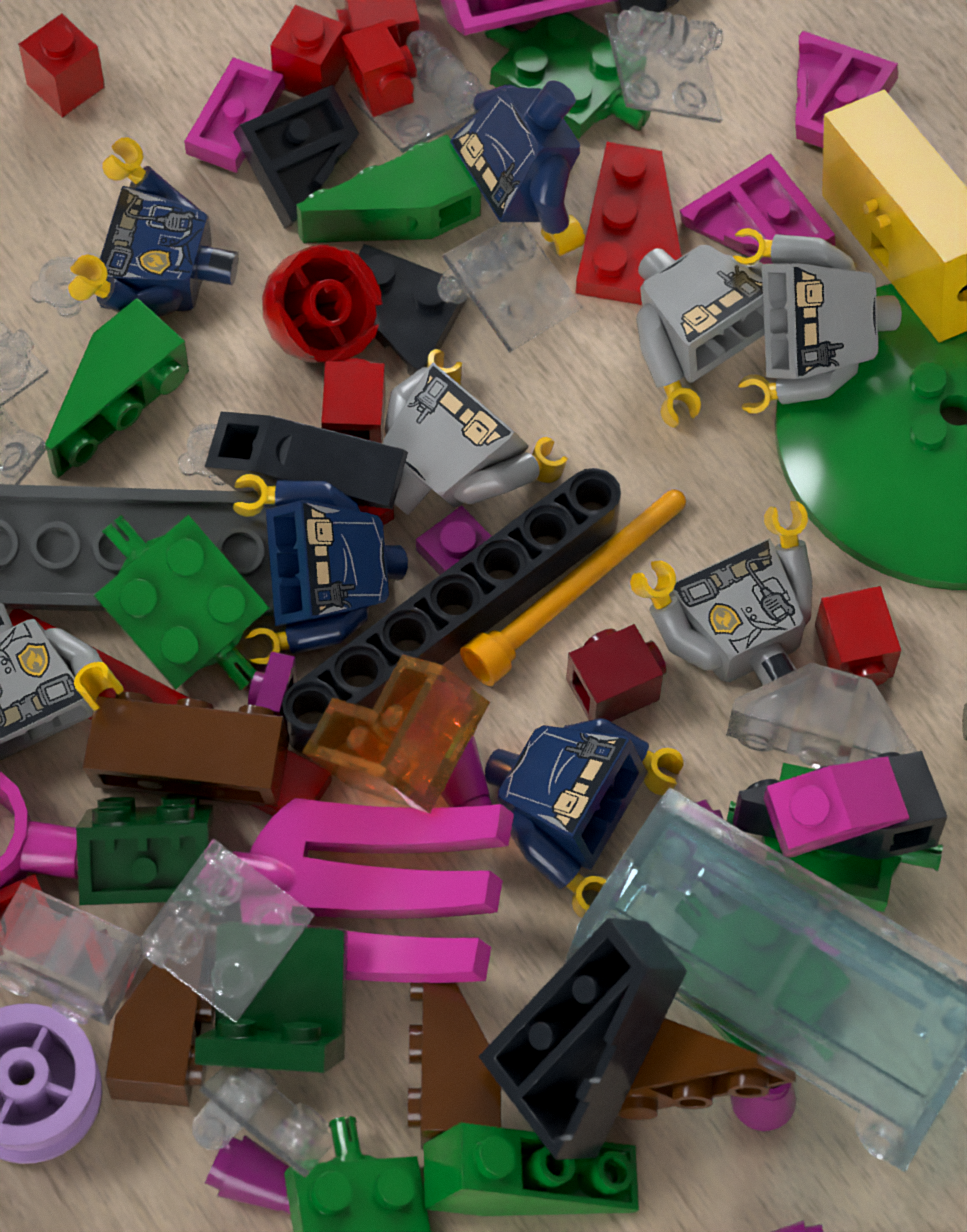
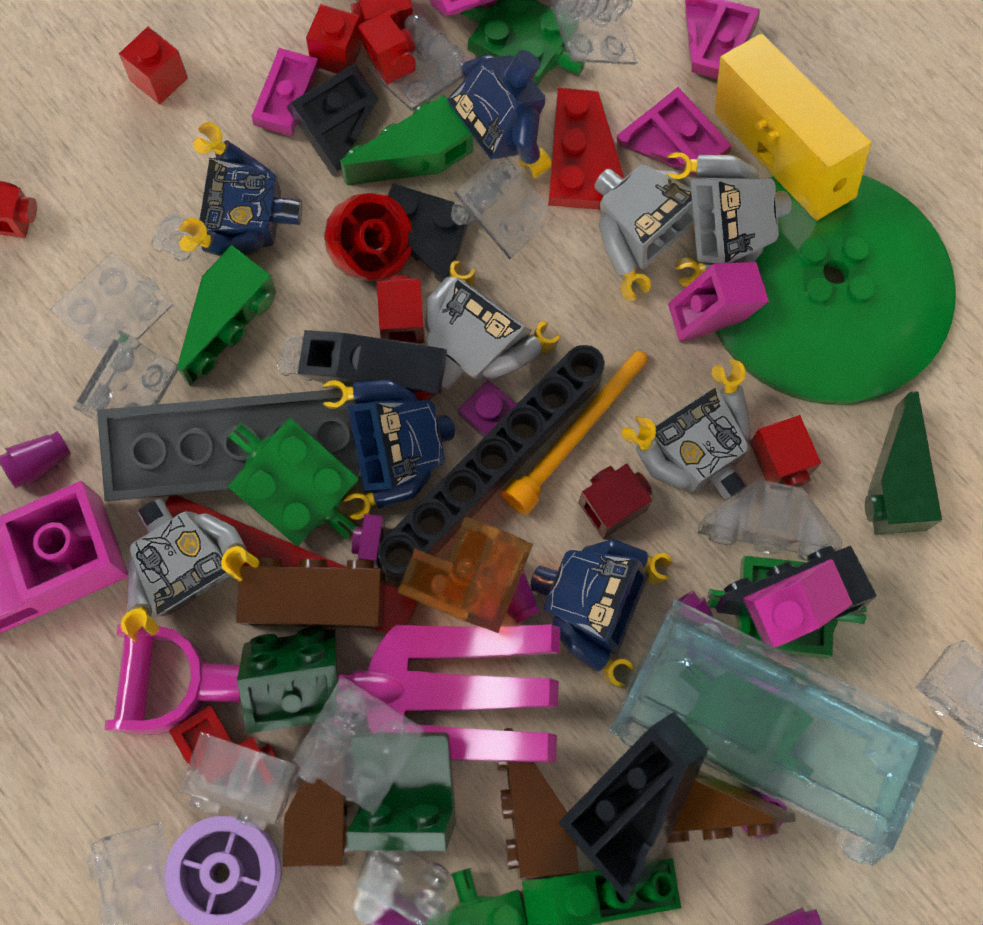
camera: 10 degrees left, 10 degrees up
(788, 429) = (718, 299): none -> dark pink slope

